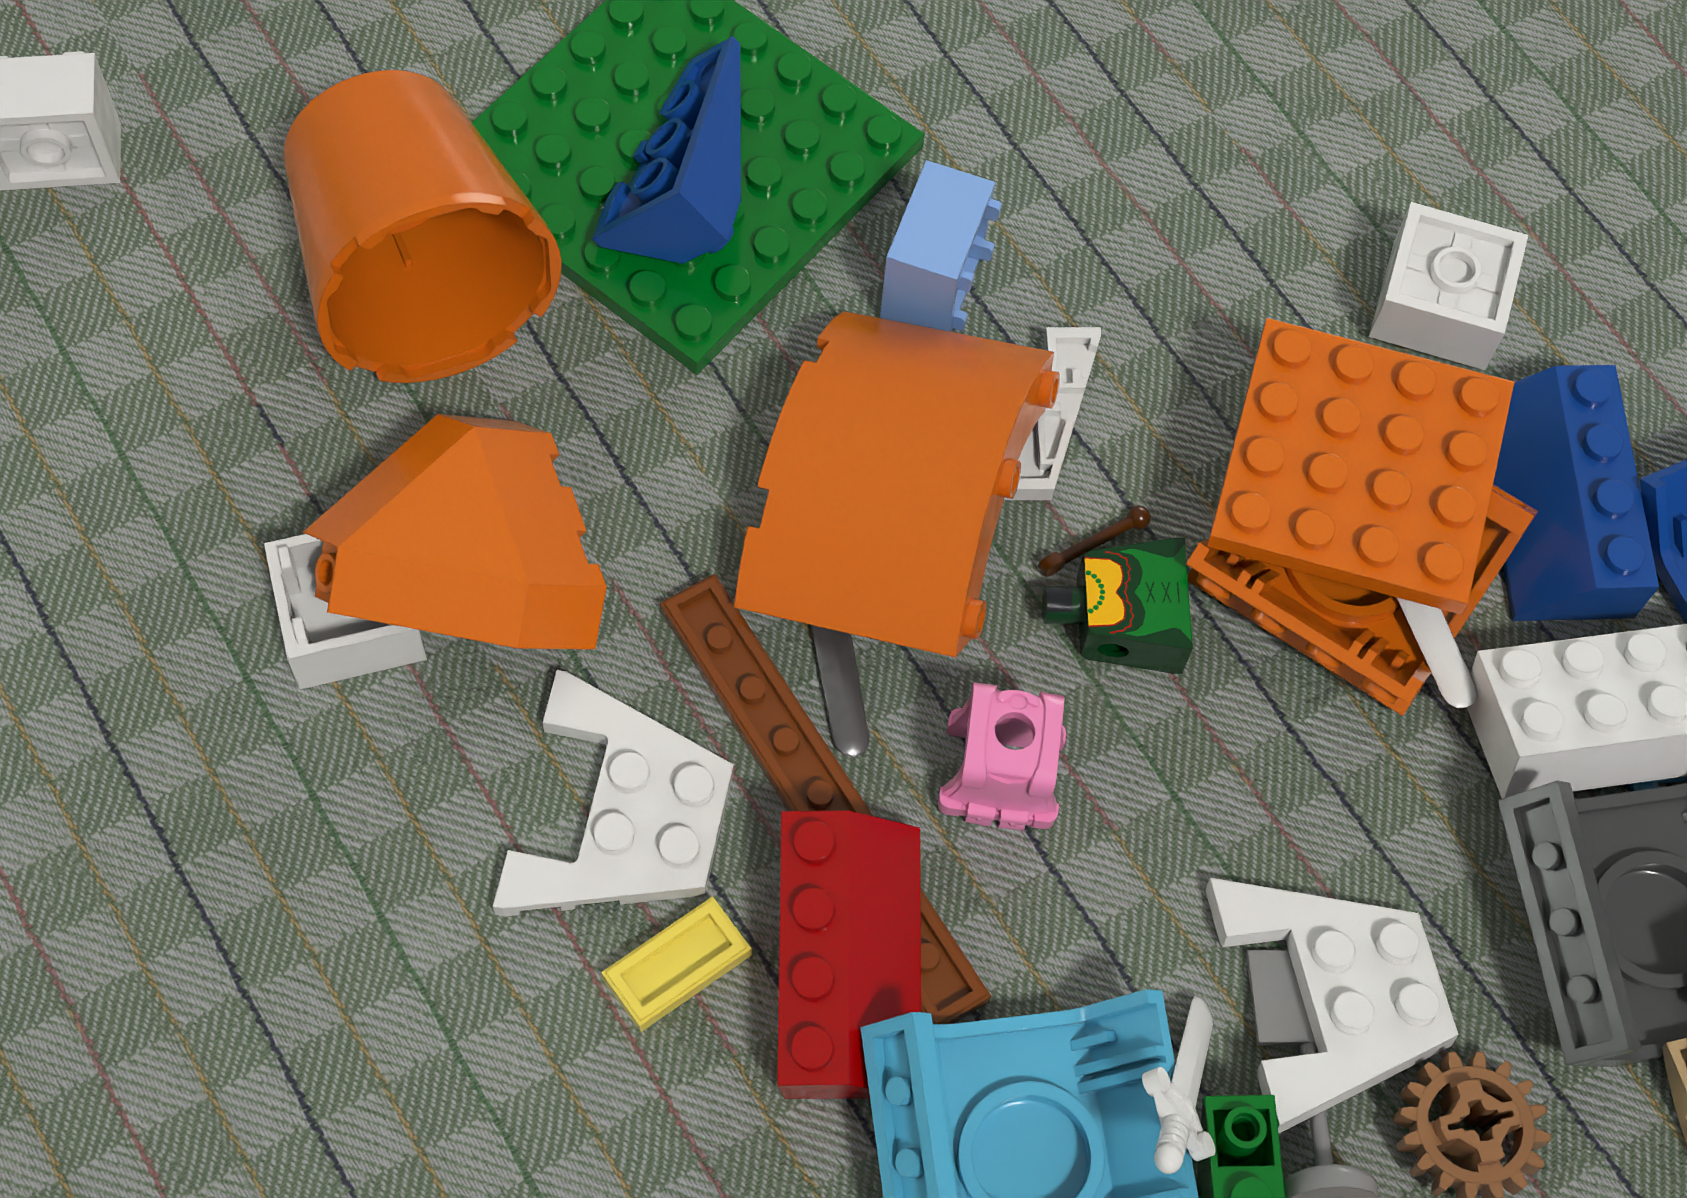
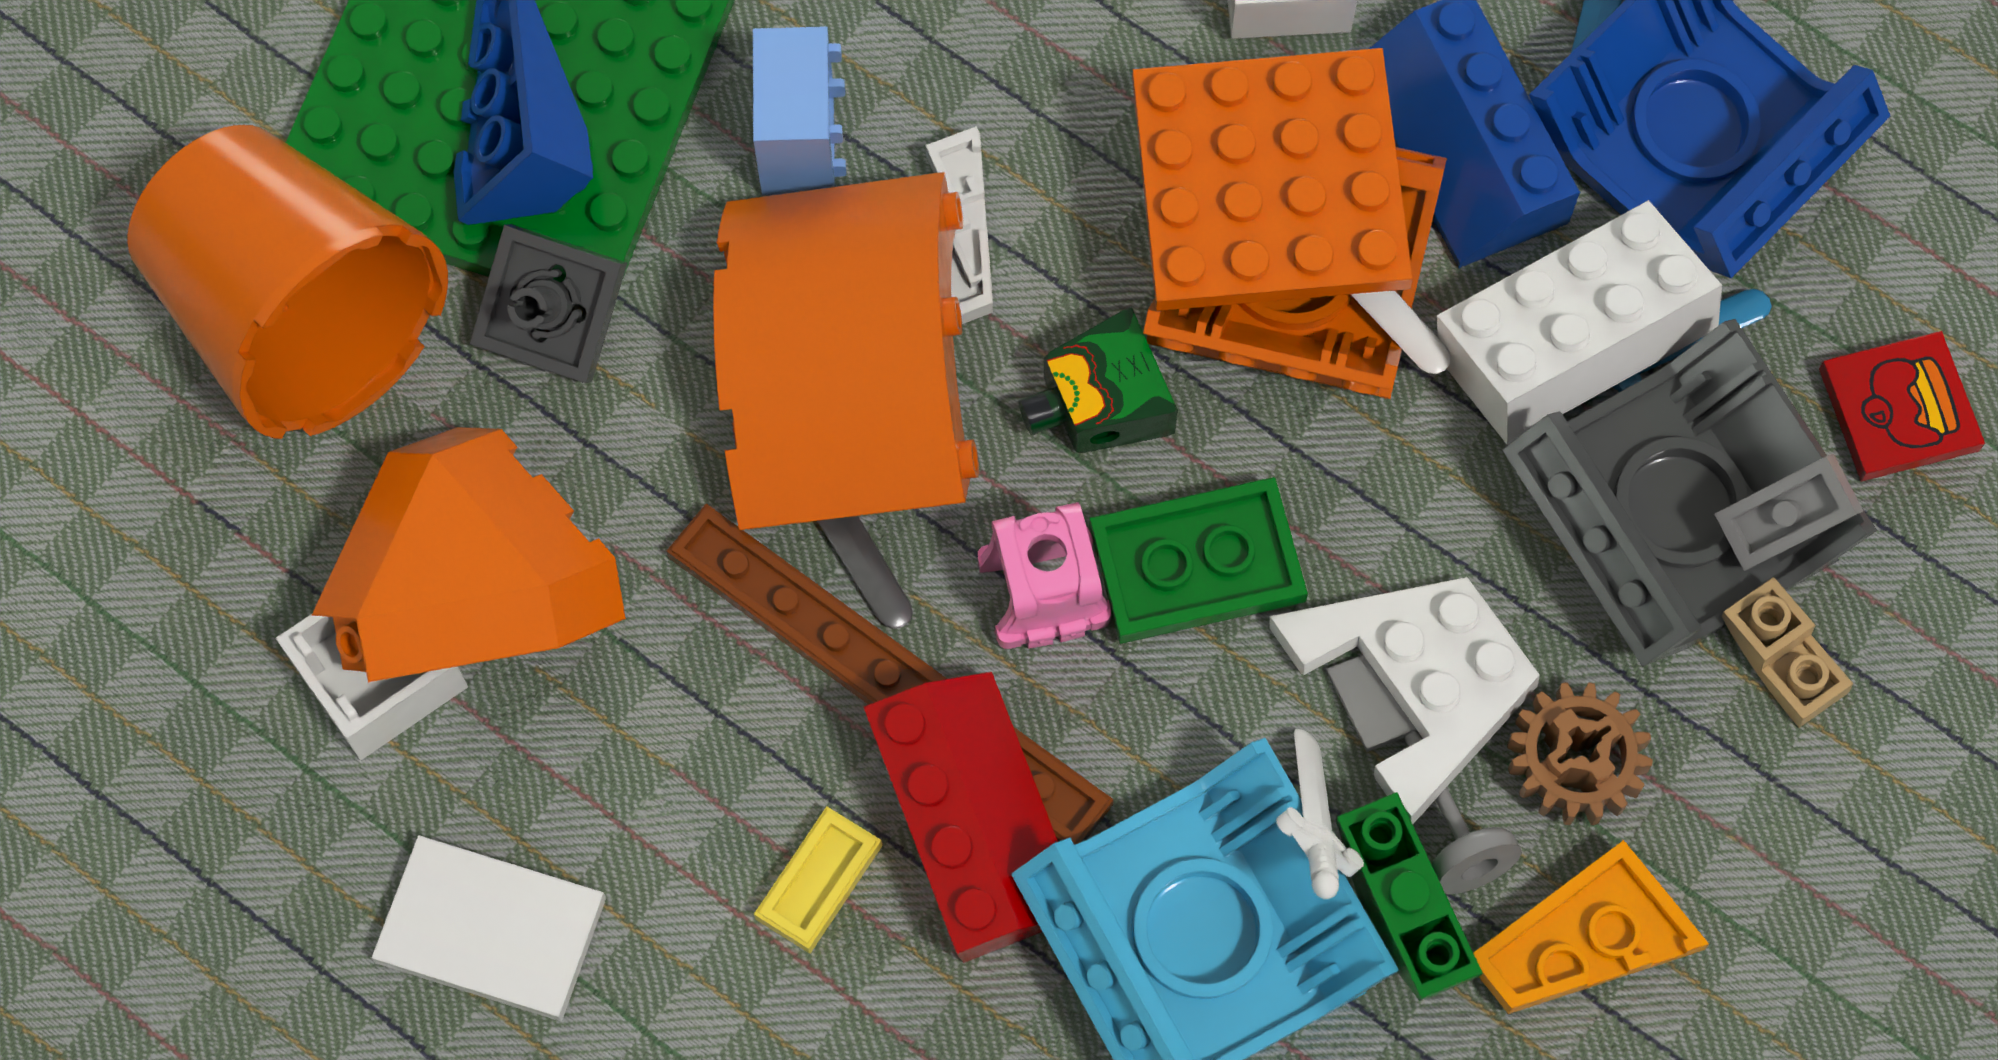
camera: 15 degrees left, 5 degrees up
(348, 889) = (489, 928): none -> white tile
(626, 328) = (540, 302): none -> dark grey plate
(649, 817) = (738, 753): white wing -> none
(1137, 518) = (1079, 300): reddish brown hinge -> none
(1160, 798) = (1197, 560): none -> green plate

